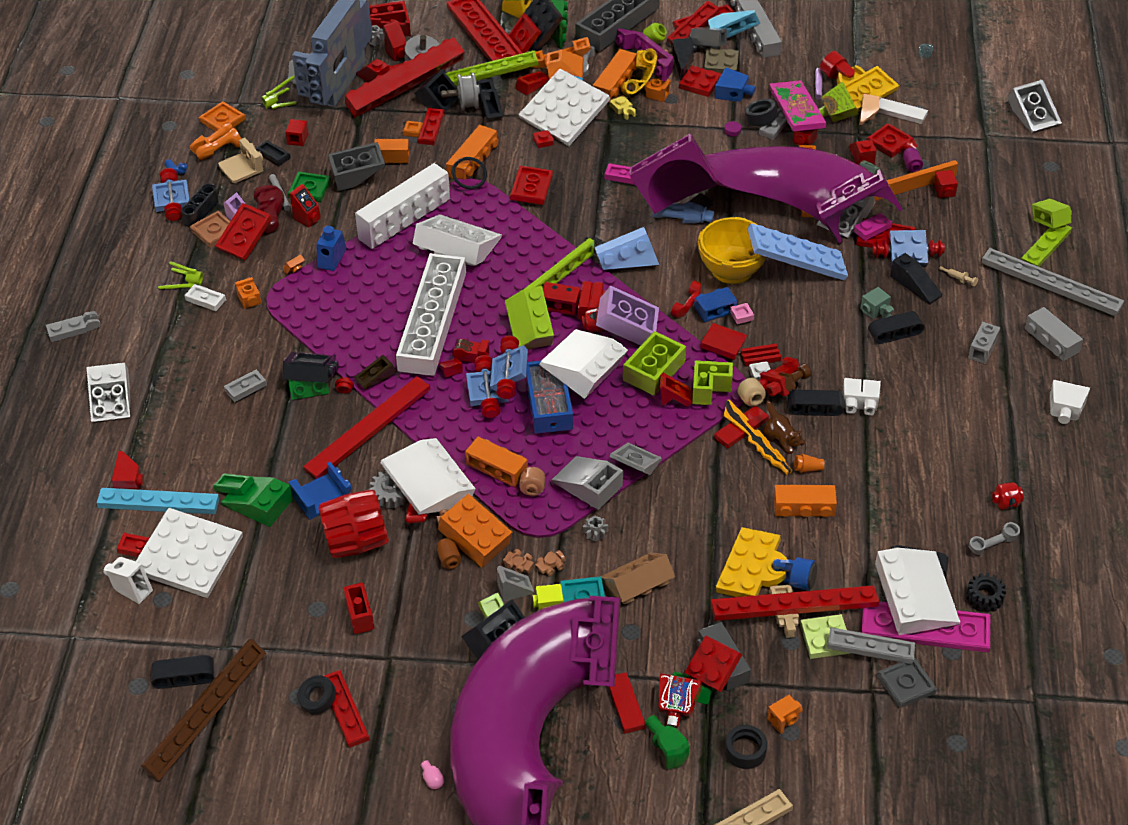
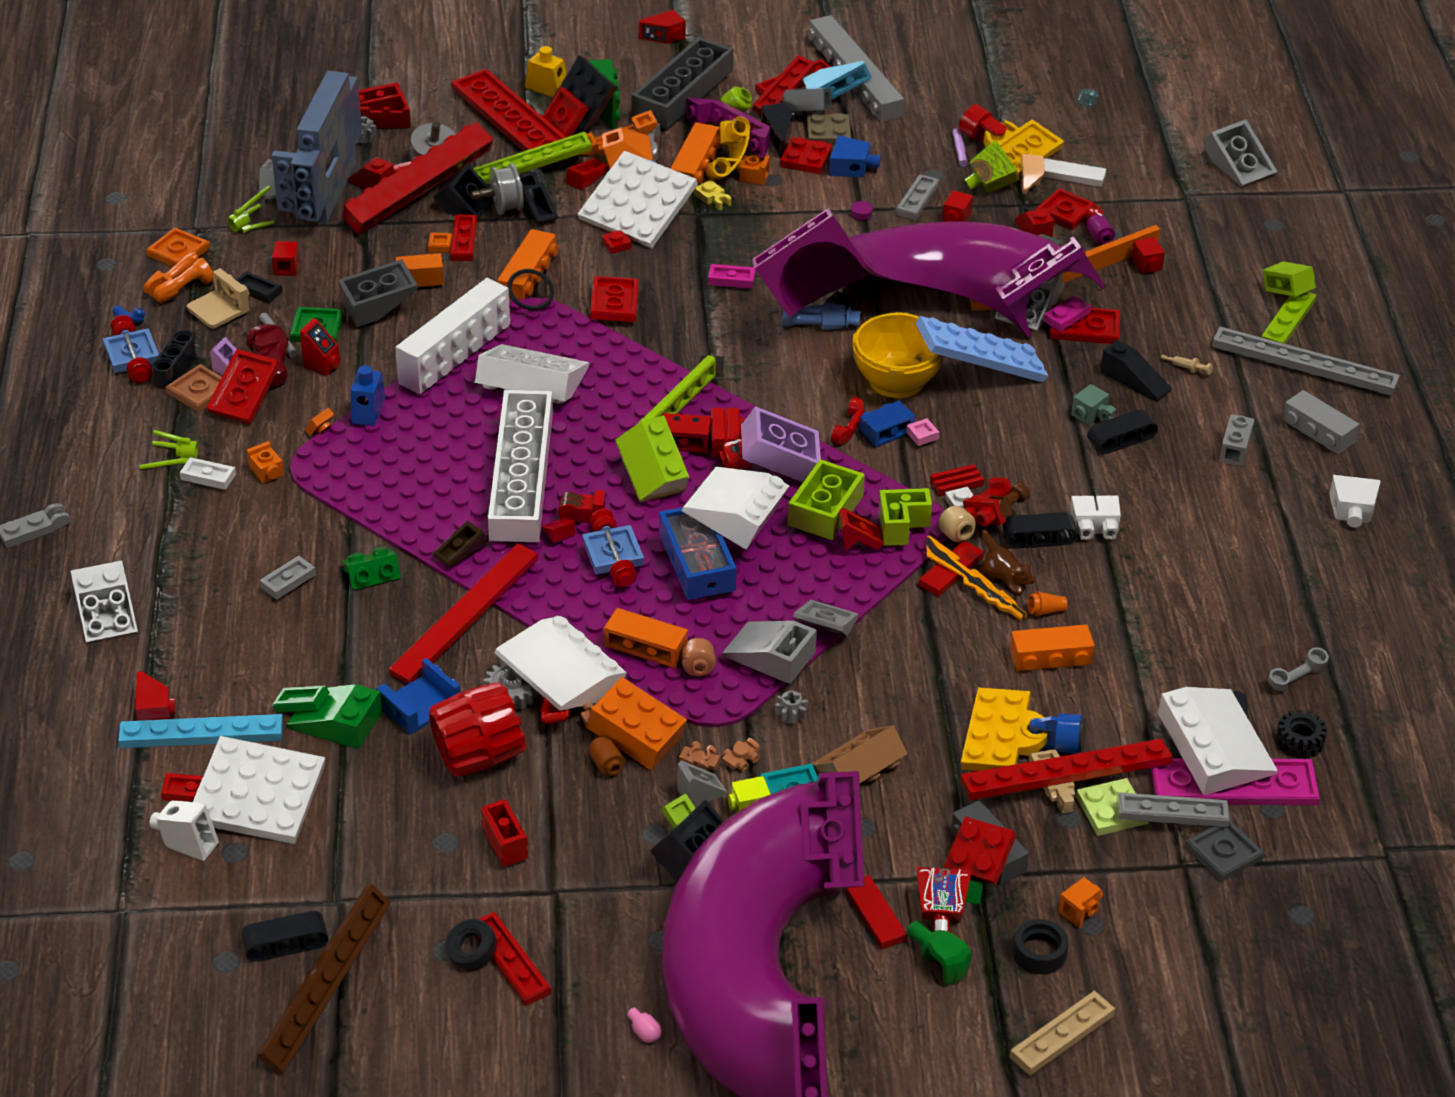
camera: 10 degrees left, 5 degrees down
(309, 367) = (372, 545): black window -> none
(344, 385) = (421, 564): red plate -> none
(394, 40) = (393, 134): red slope -> none
(508, 367) = (640, 519): medium blue plate -> none
(627, 251) = (760, 368): light blue wedge -> none
(723, 341) = (906, 467): red tile -> none
(761, 112) = (895, 187): black tyre -> none
(797, 106) = (941, 175): dark pink tile -> none
(910, 242) = (1117, 326): medium blue plate -> none
(1008, 495) = (1304, 617): red head -> none

